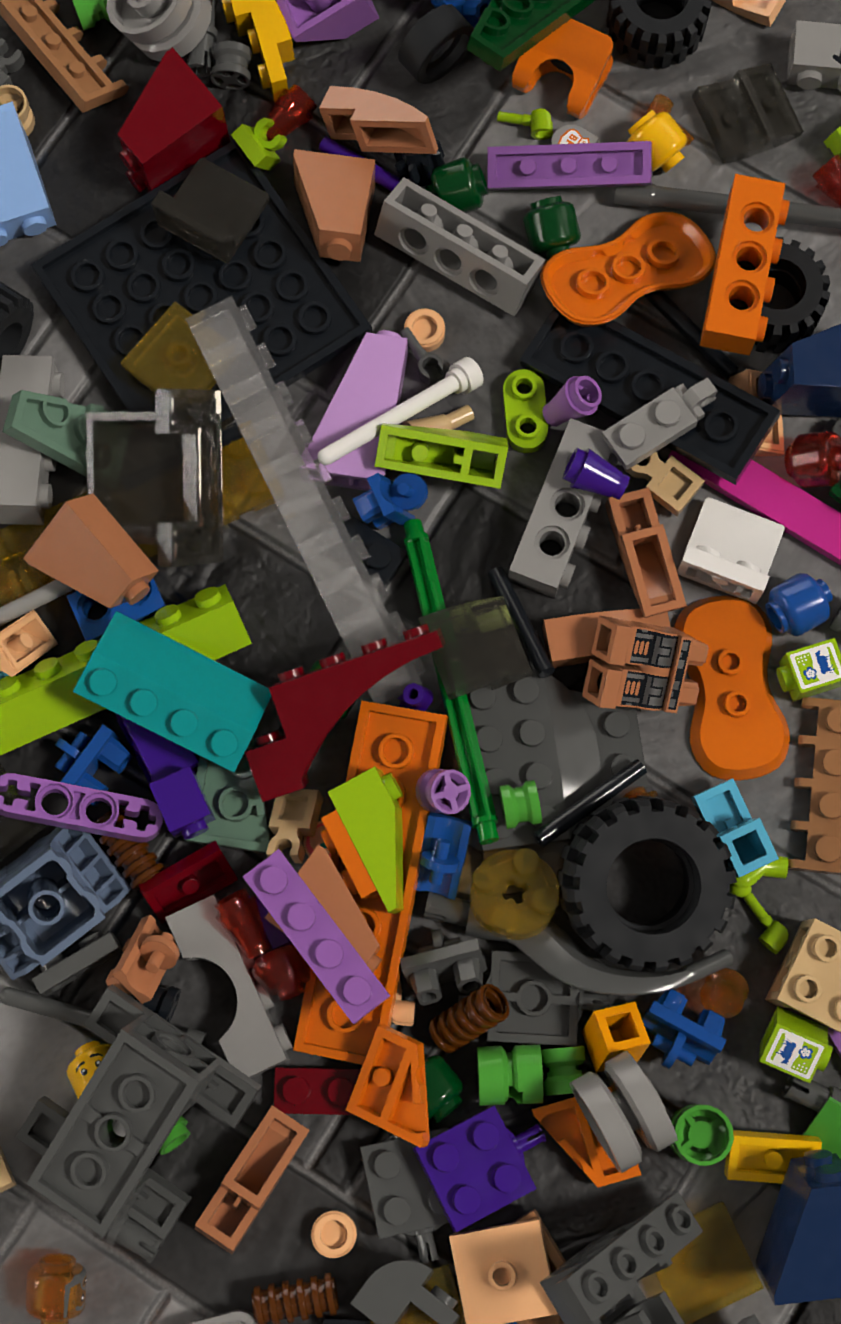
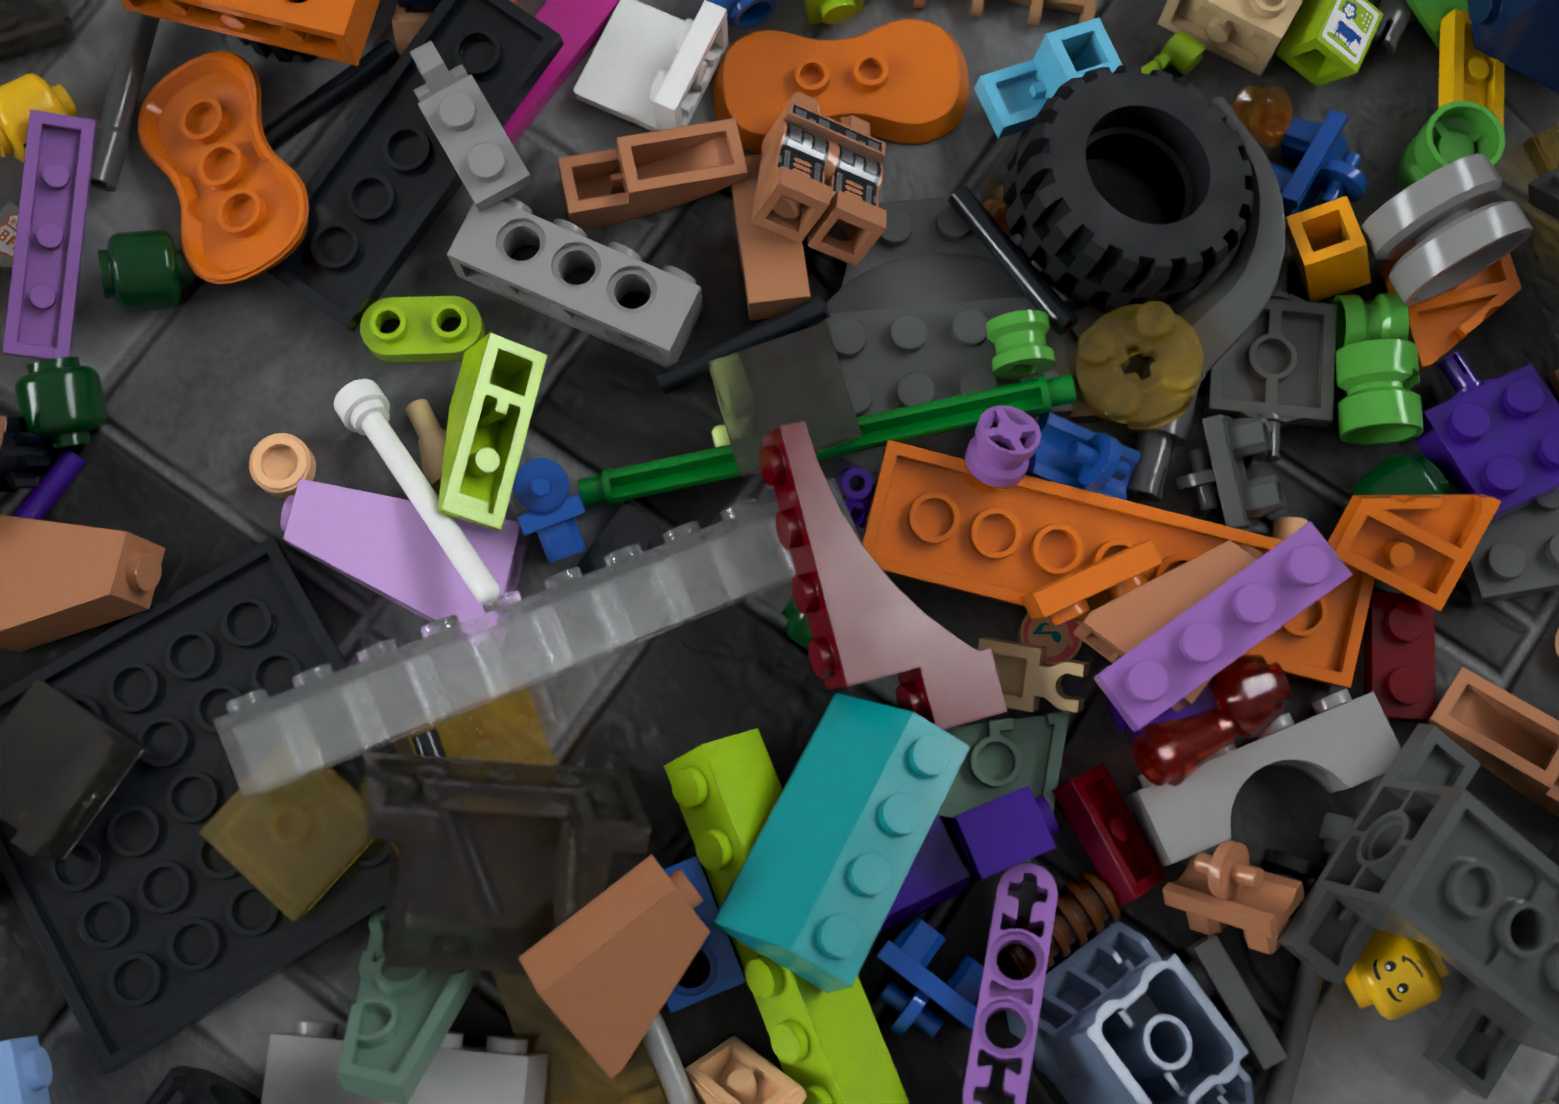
camera: 90 degrees left, 0 degrees up
(375, 826) = (1050, 544): lime slope -> none
(422, 356) = (327, 466): dark grey hand -> none
(458, 246) = (158, 400): light grey brick -> none
(469, 1018) = (1308, 438): reddish brown piece -> none
(574, 400) = (421, 247): medium lavender cone -> none
(594, 474) = (538, 220): dark purple cone -> none
(669, 482) = (550, 132): tan plate -> none

